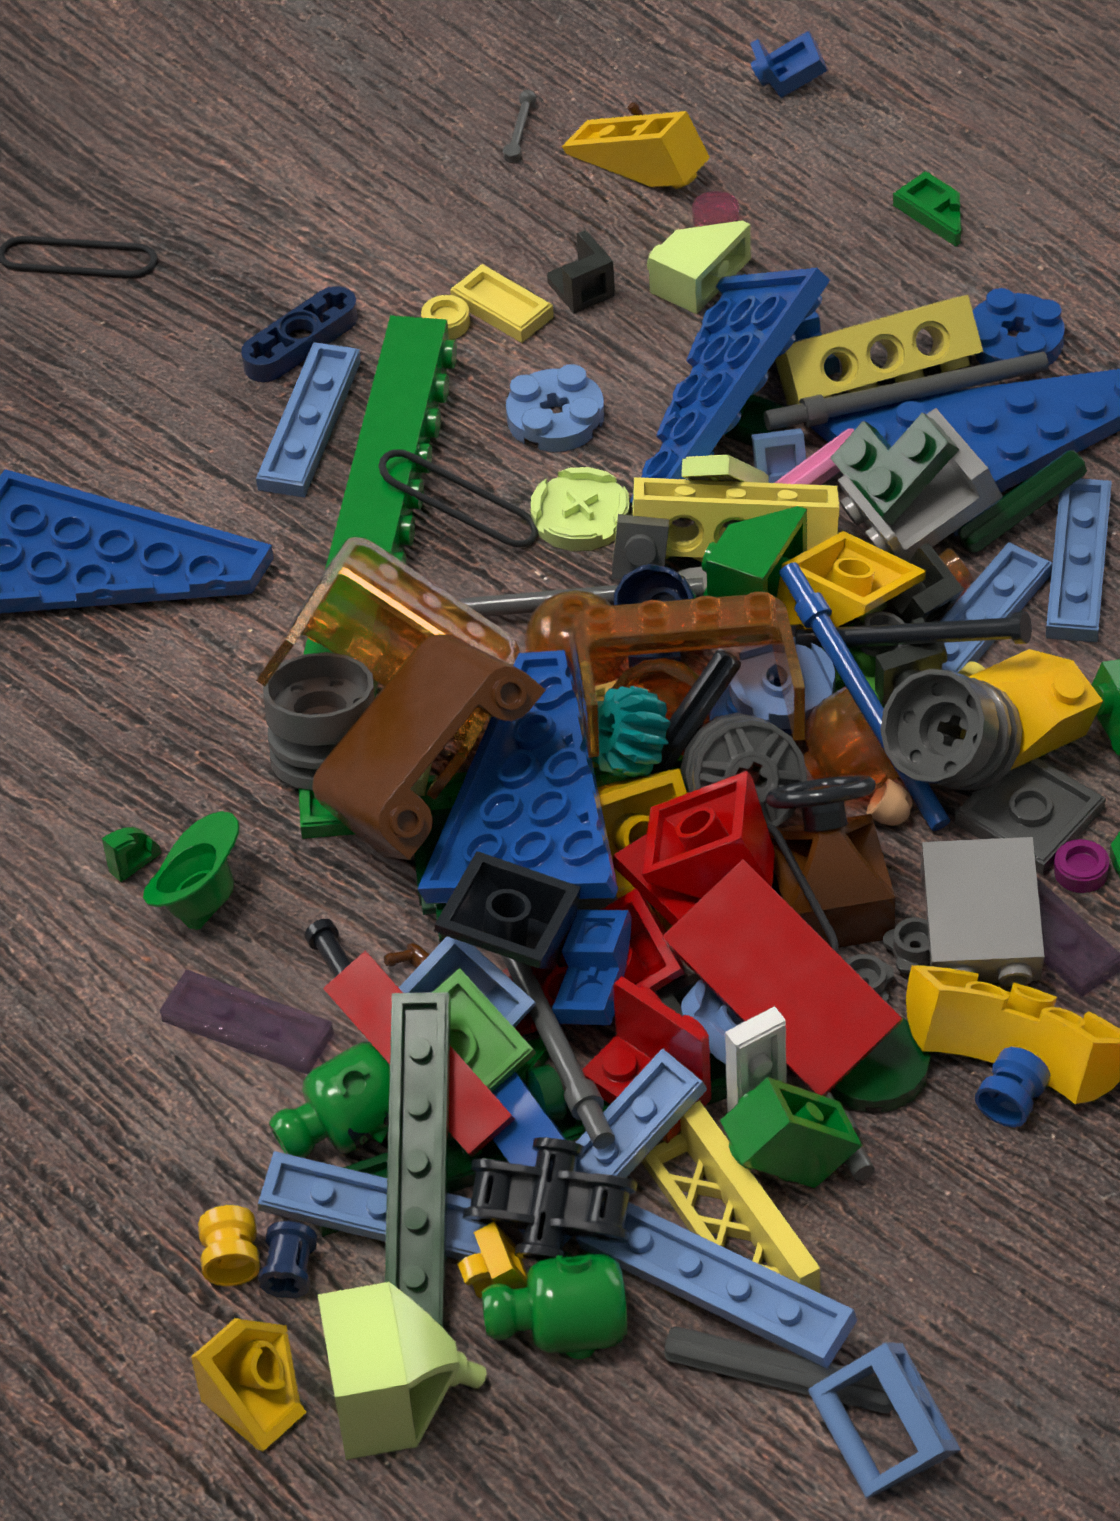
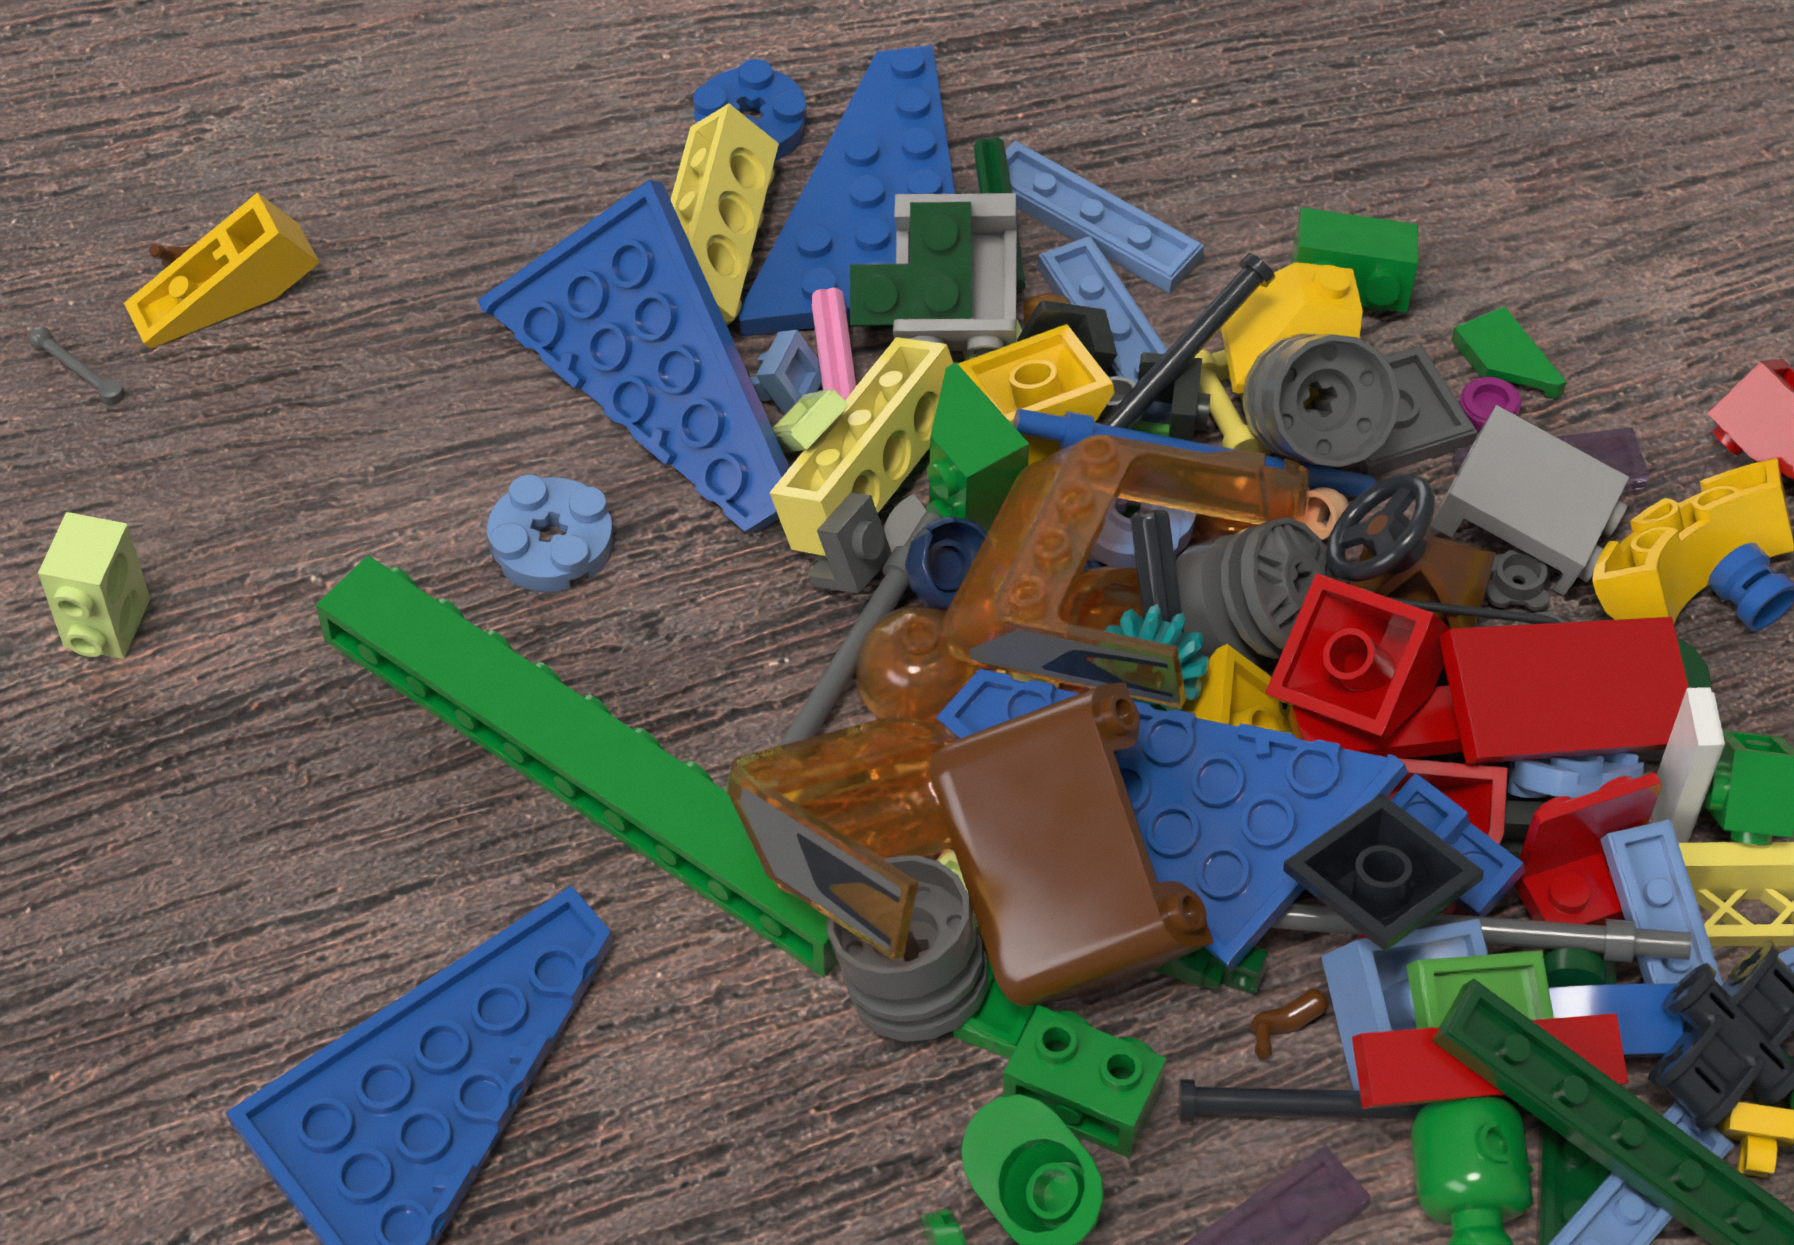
camera: 65 degrees left, 5 degrees up
(274, 353) = (250, 733): dark blue beam -> none
(295, 867) = (1087, 1077): none -> green brick
(308, 420) = (377, 768): medium blue tile -> none
(328, 211) = (94, 585): none -> yellowish green brick
(449, 308) = (319, 565): light yellow tile -> none
(451, 512) = (647, 693): black piece -> none
(503, 303) = (344, 507): light yellow tile -> none
(579, 508) = (715, 580): yellowish green tile -> none
(586, 279) = (370, 412): pearl dark grey panel -> none
(694, 261) = (447, 311): yellowish green slope -> none
(714, 208) = (371, 262): clear pink tile -> none
(789, 65) = (213, 94): blue bracket -> none
(817, 409) = (757, 305): dark grey bar -> none
(931, 205) = (516, 90): green tile -> none

